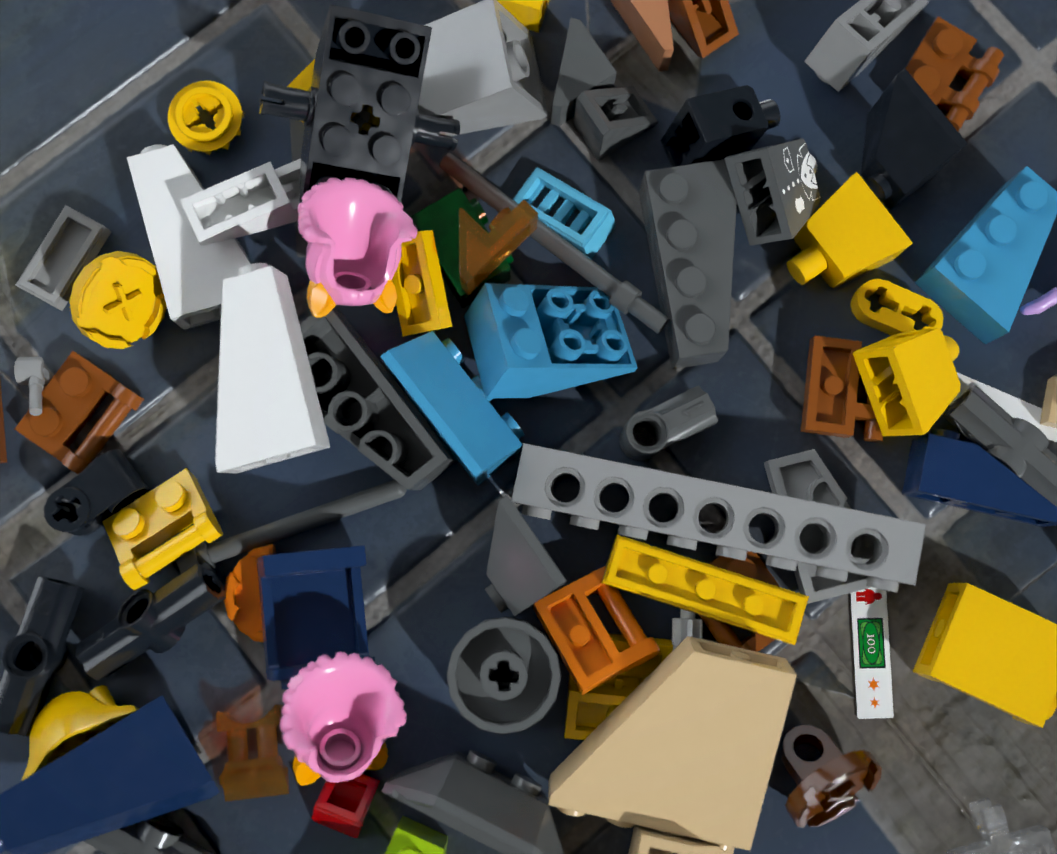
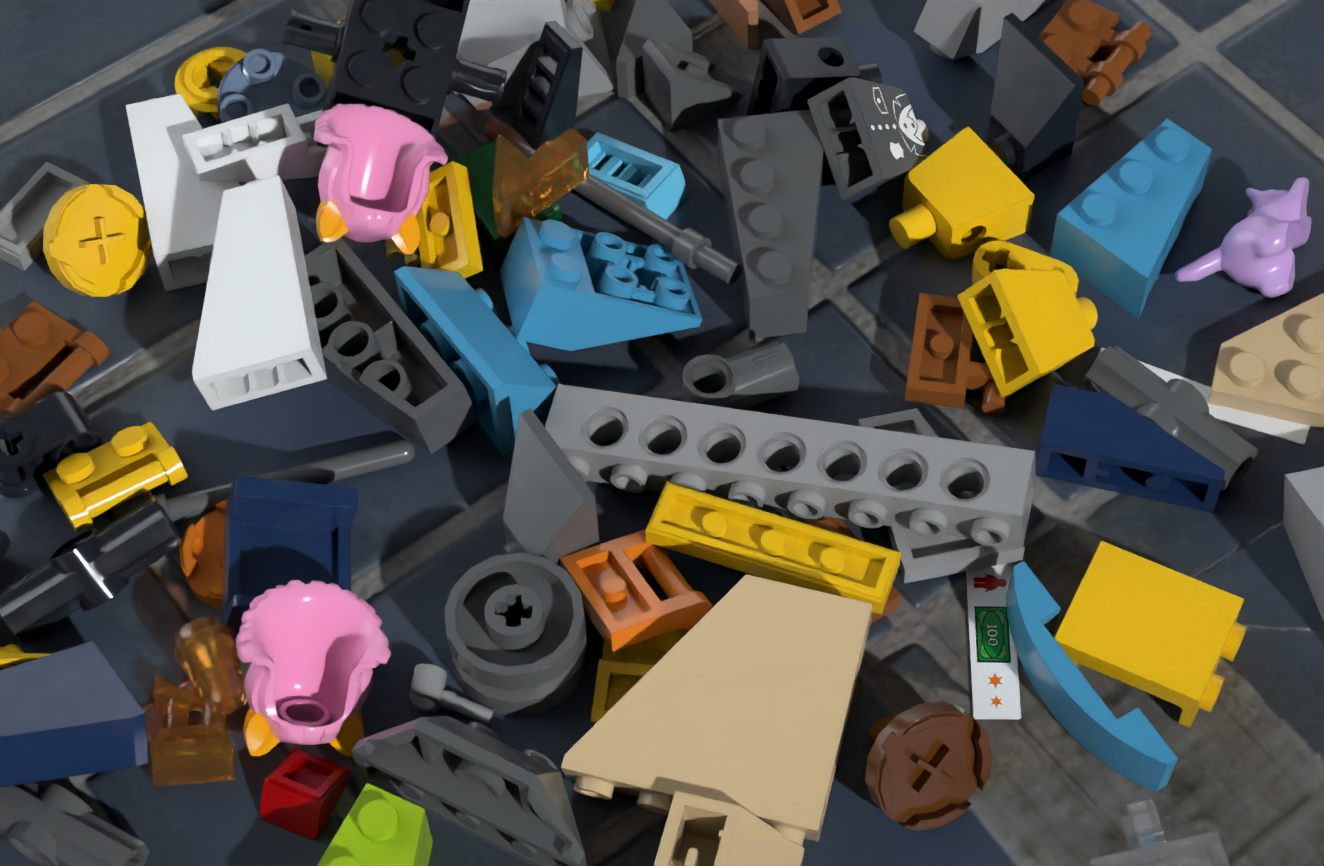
camera: 10 degrees right, 25 degrees down
(245, 139) = (268, 81): none -> sand blue dish
(260, 712) = (211, 662): none -> clear orange cone
(435, 714) = (429, 694): none -> light grey hand
(497, 145) = (550, 88): none -> black slope
(906, 647) = (1124, 744): none -> dark azure slope

